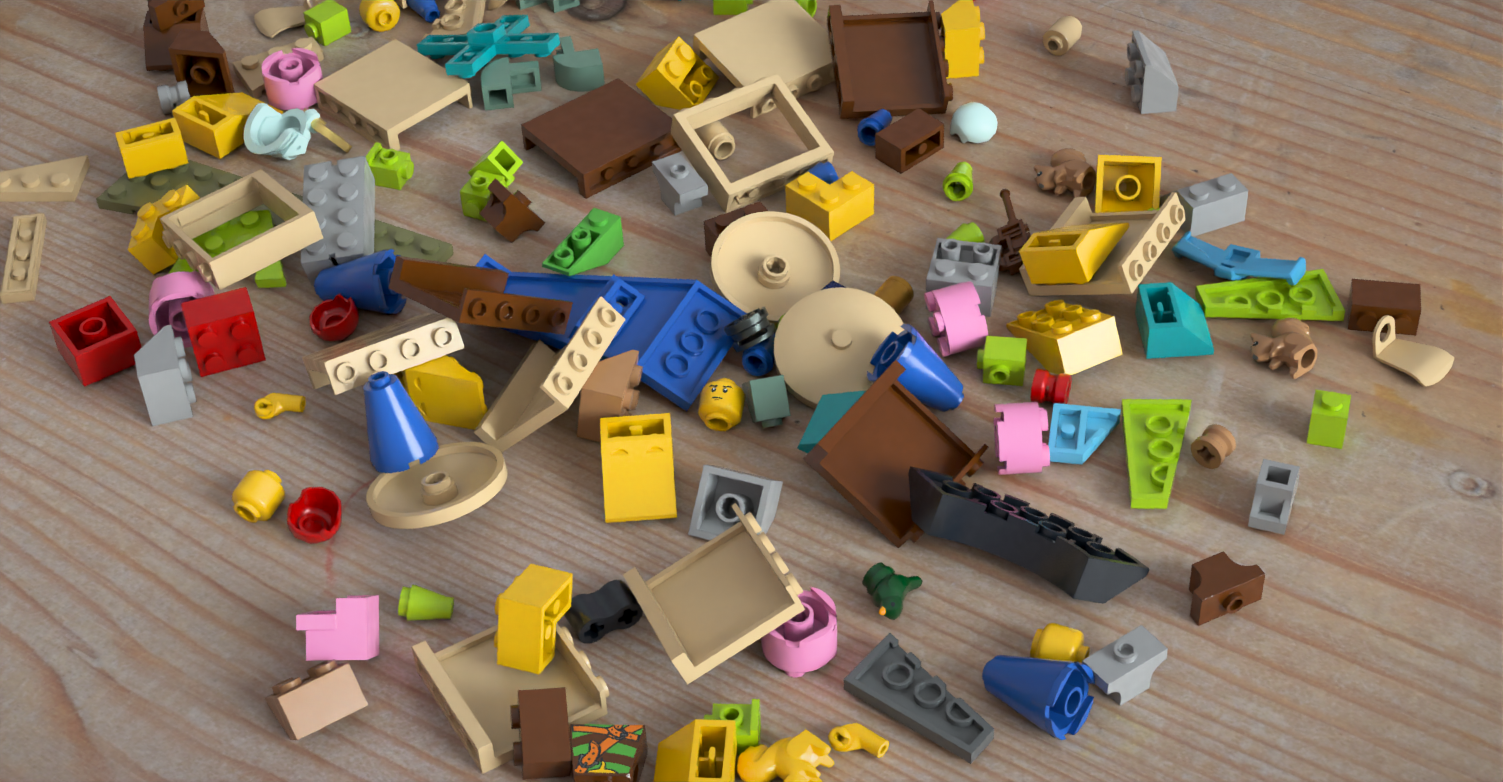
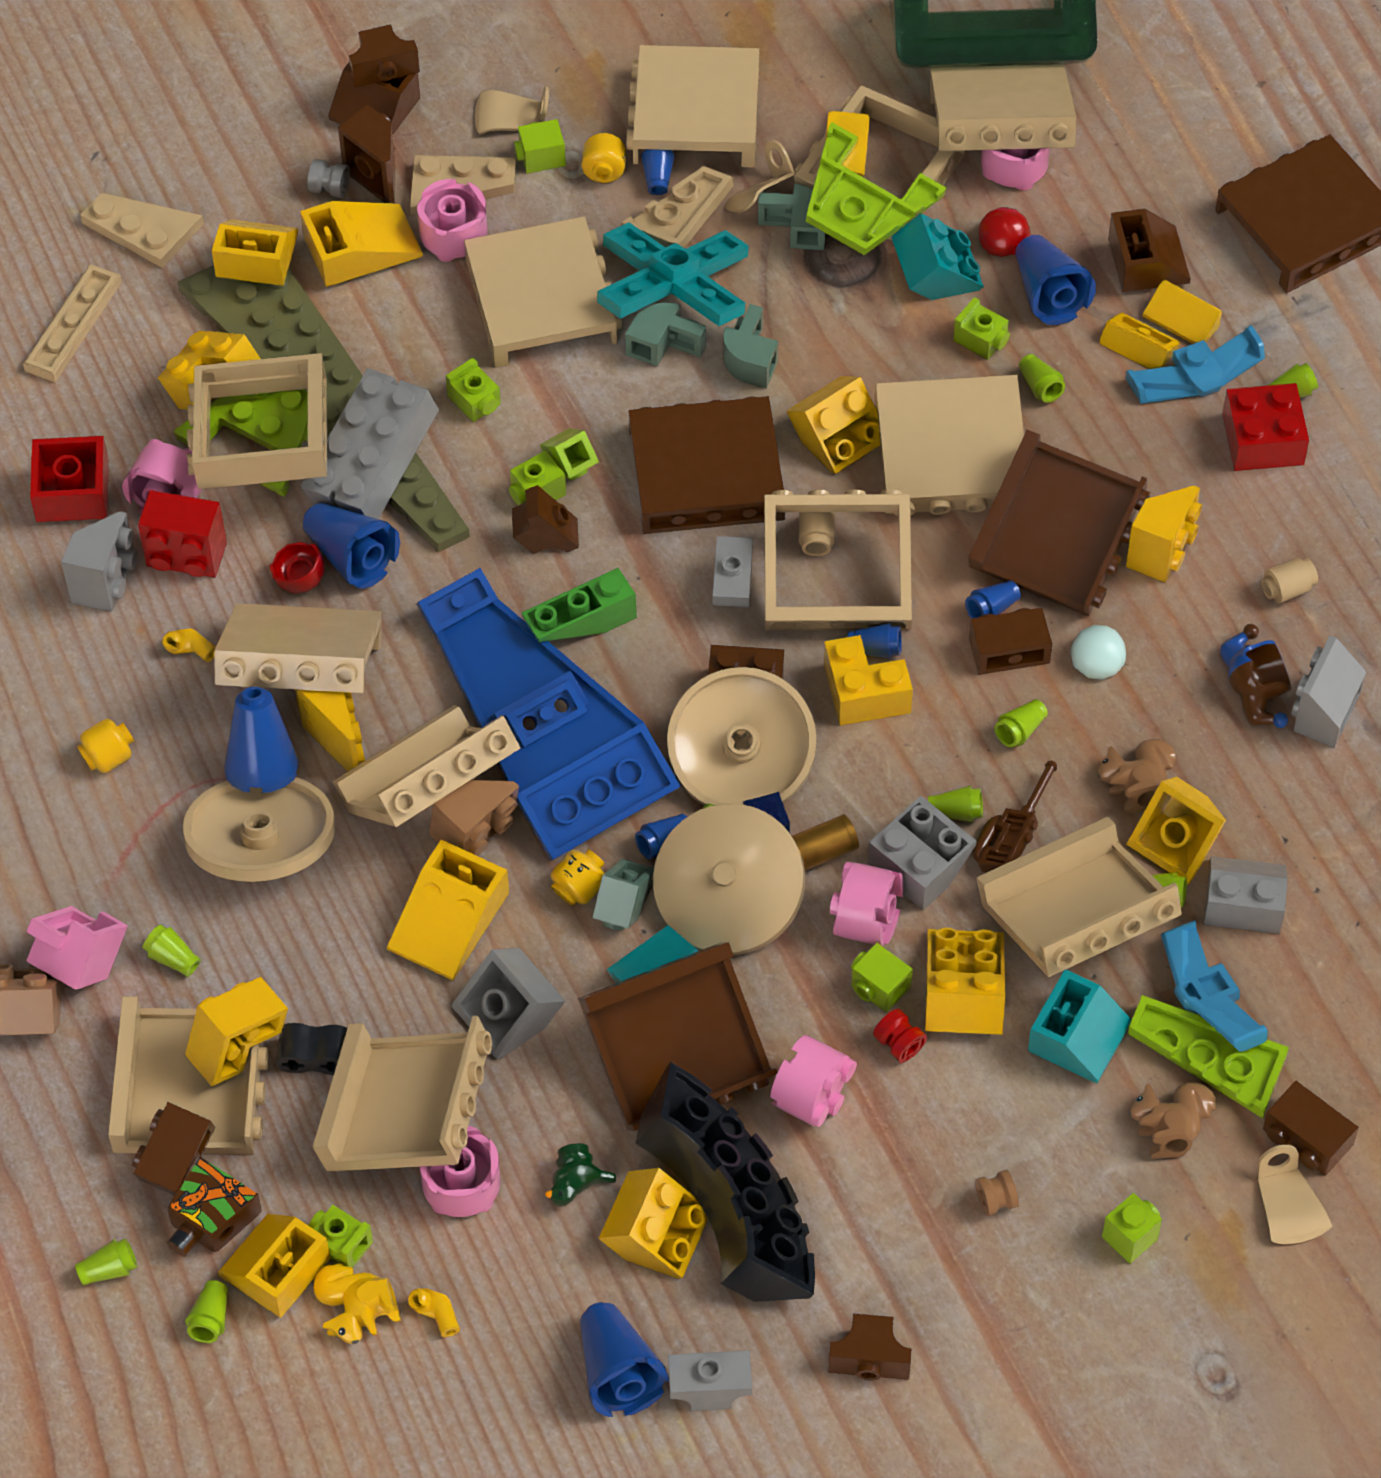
camera: 30 degrees right, 15 degrees up
(286, 133) = (396, 293): light aqua helmet -> none
(315, 515) = (136, 799): red hair -> none
(476, 296) = (412, 637): reddish brown panel -> none
(748, 326) = (657, 807): pearl dark grey wheel -> none
(910, 695) = (513, 1295): dark grey wing -> none
(925, 371) = (771, 950): blue cone -> none
(980, 588) = (654, 1222): none -> yellow slope
(1059, 643) = (672, 1326): yellow head -> none
(1069, 252) = (1037, 887): yellow slope -> none
(1079, 431) = (886, 1100): medium azure wing -> none
(1091, 91) = (1256, 675): none -> reddish brown piece
(1153, 447) = (945, 1155): lime wing -> none
(1274, 496) = (1002, 1282): light grey brick -> none

